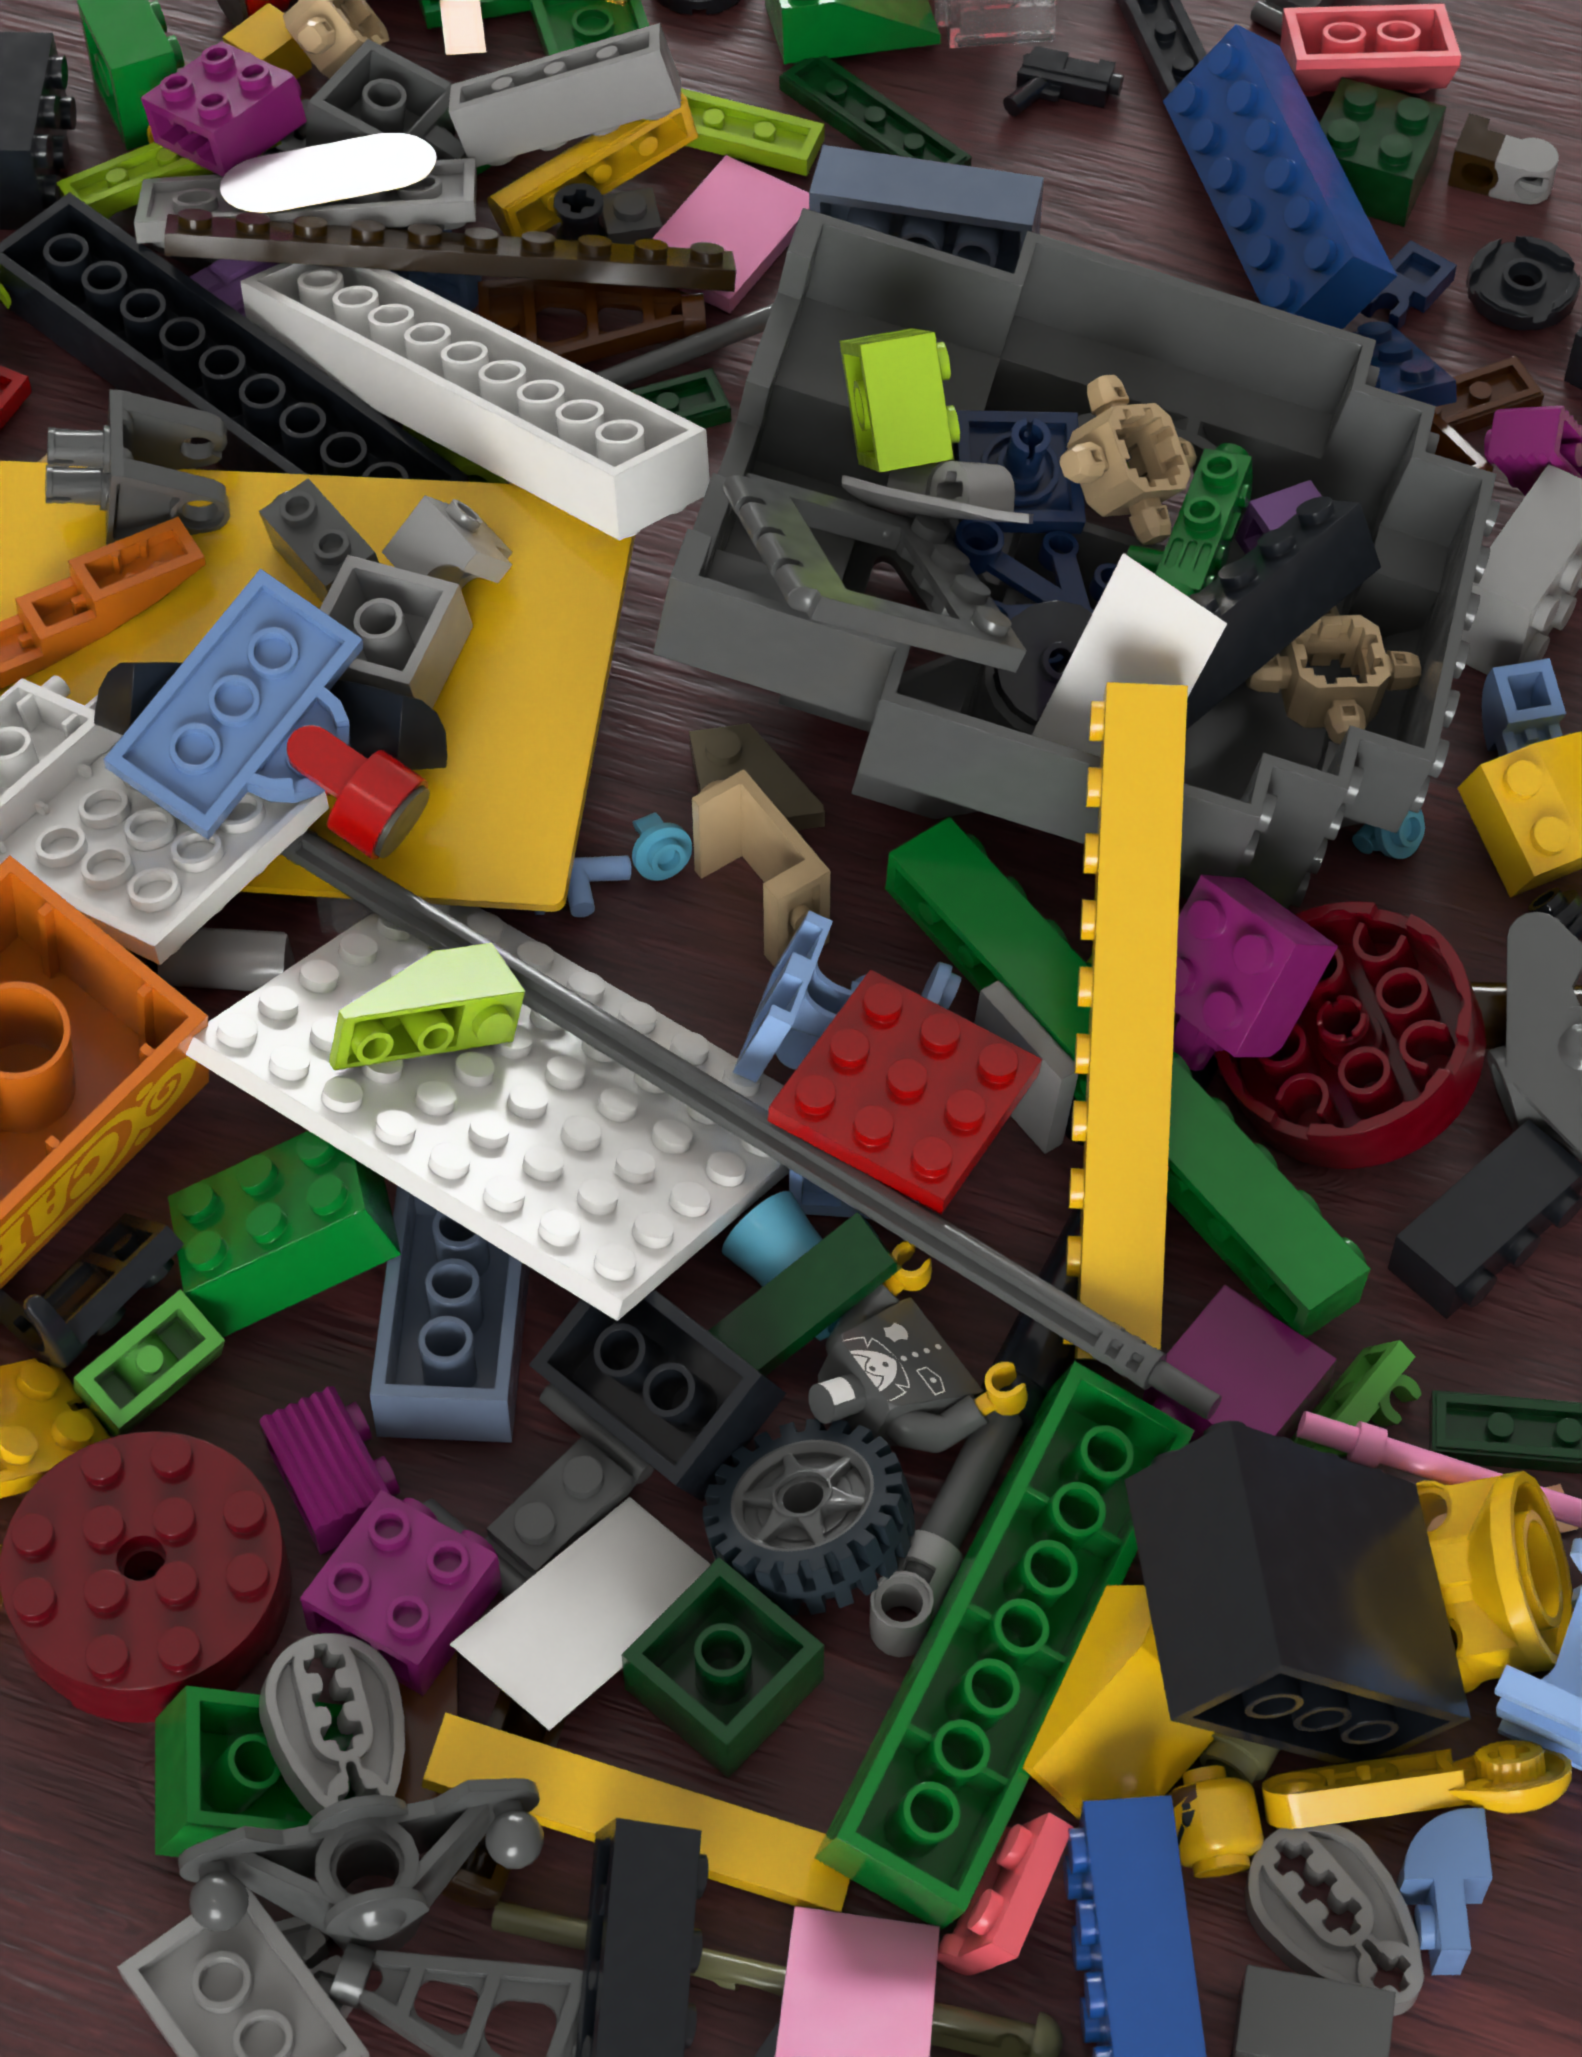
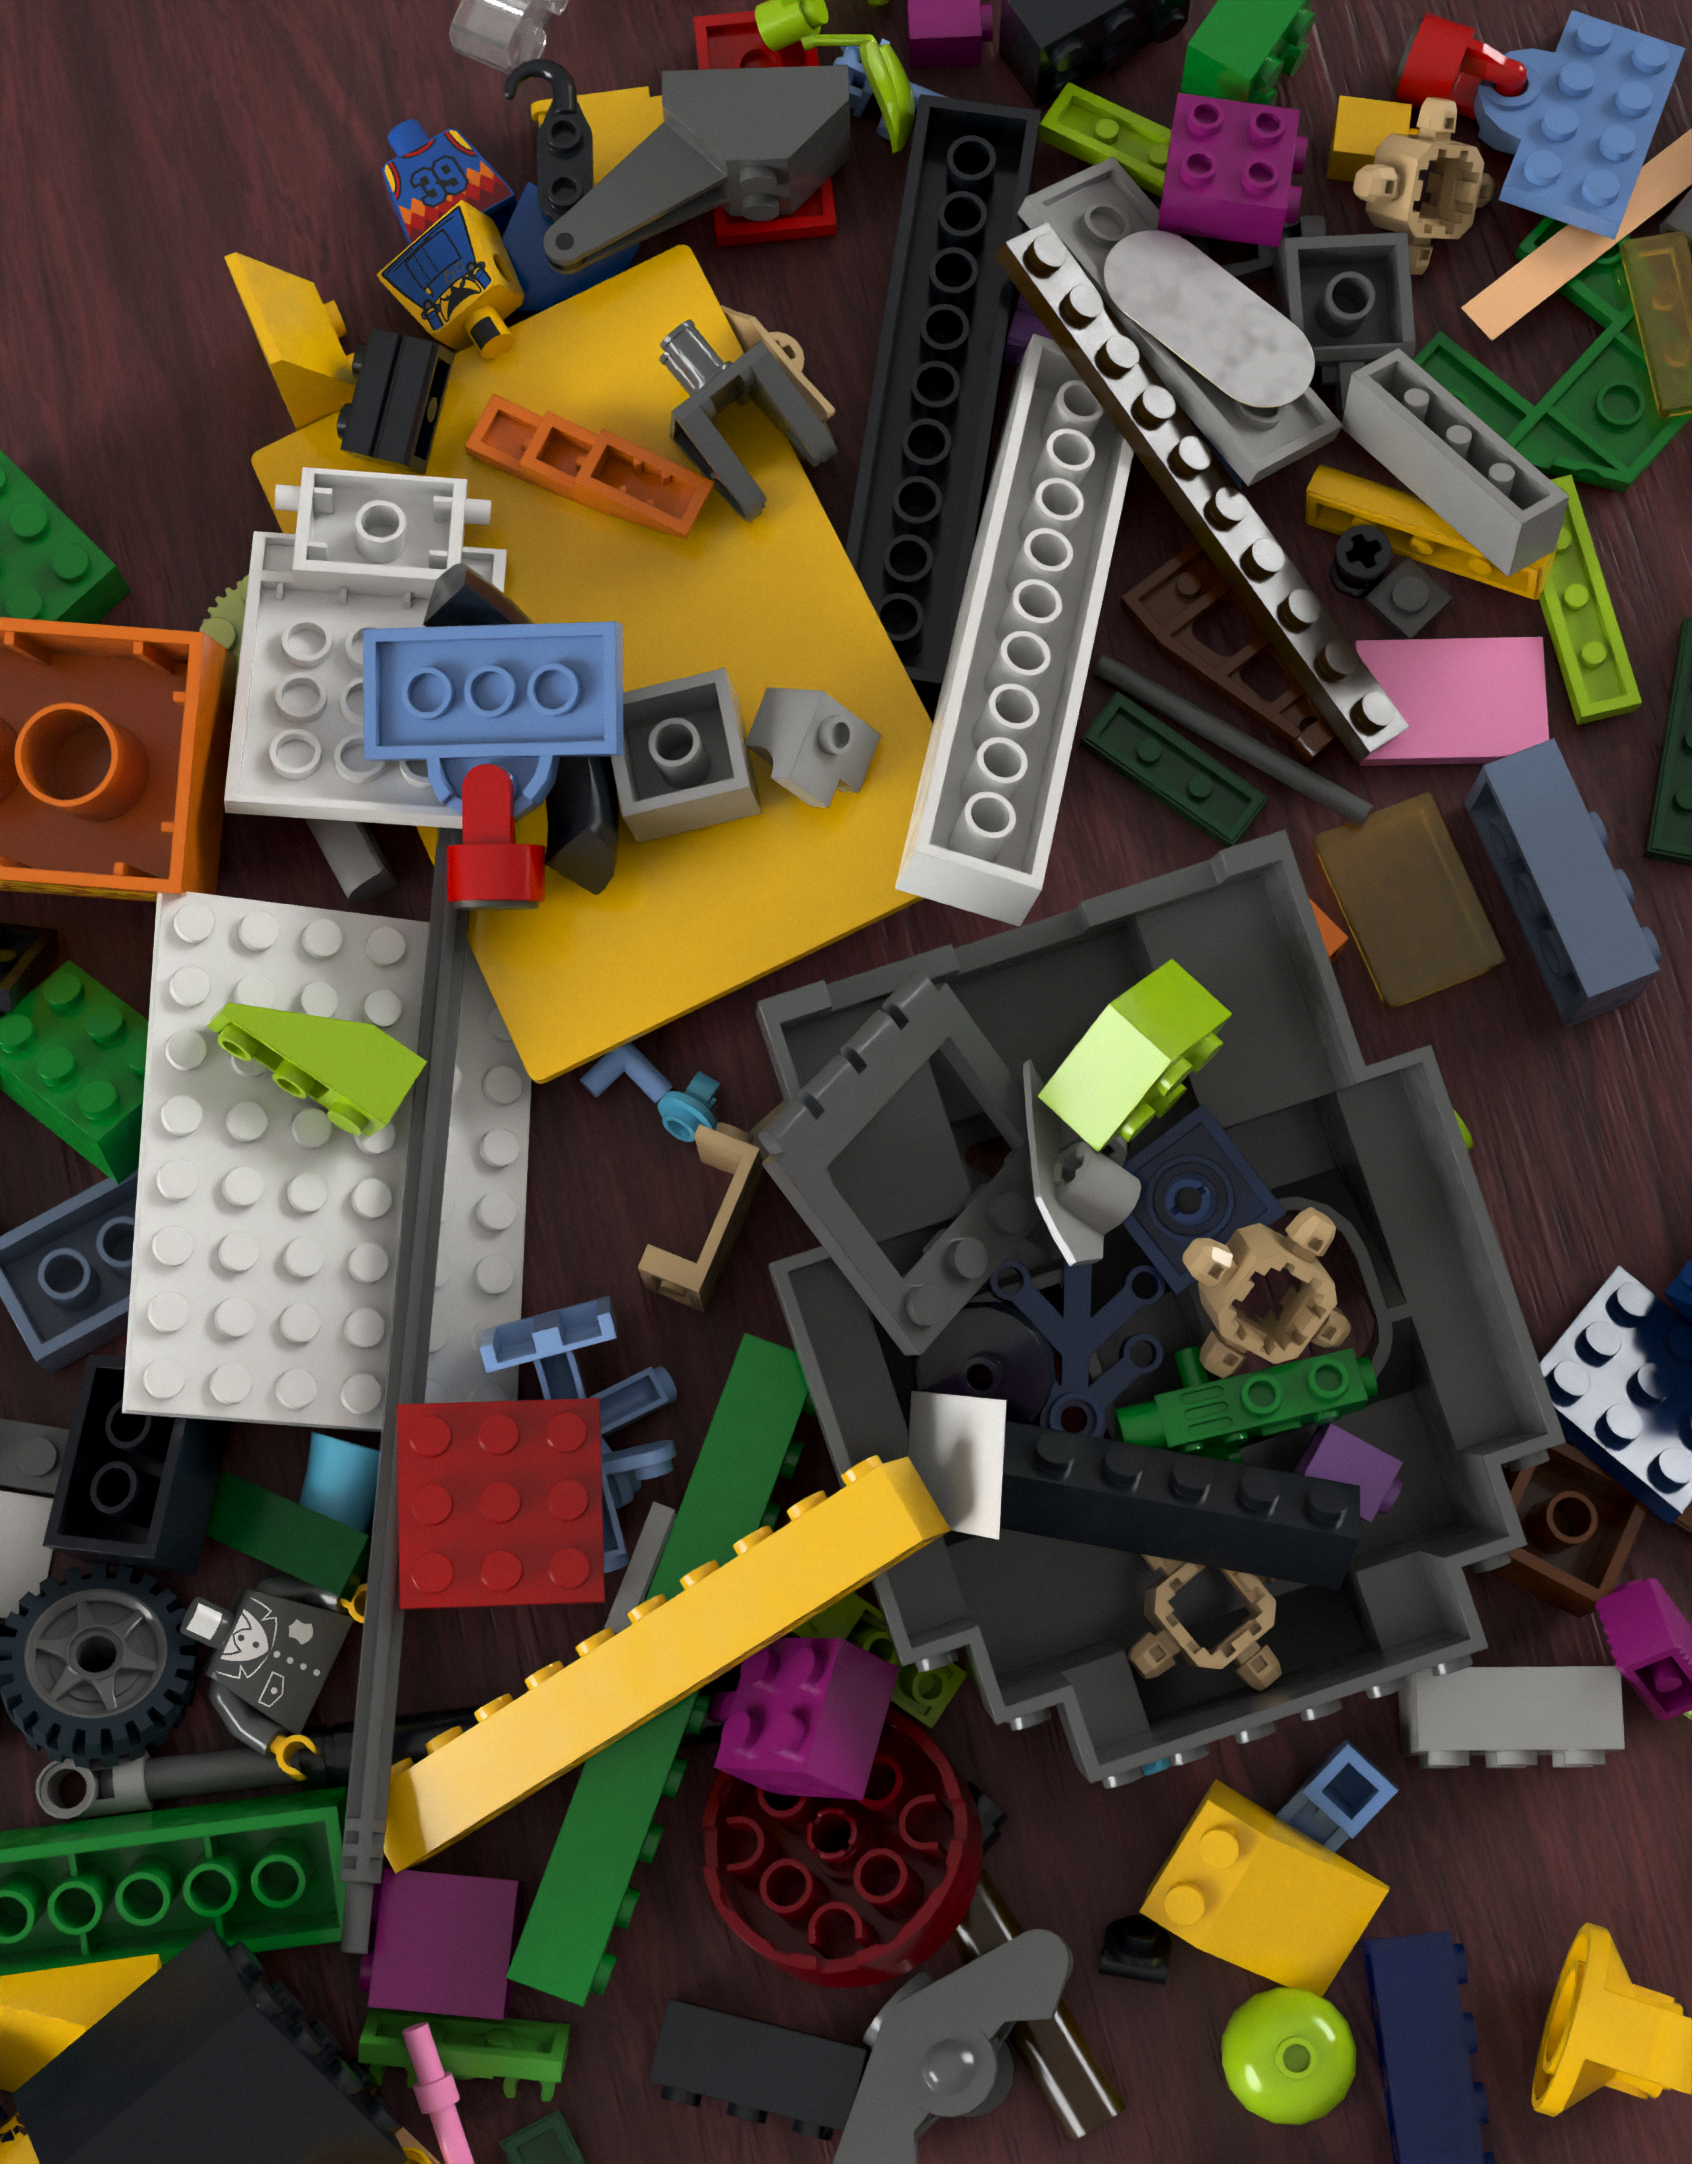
camera: 60 degrees right, 20 degrees up
(312, 536) = (757, 624): dark grey brick -> none

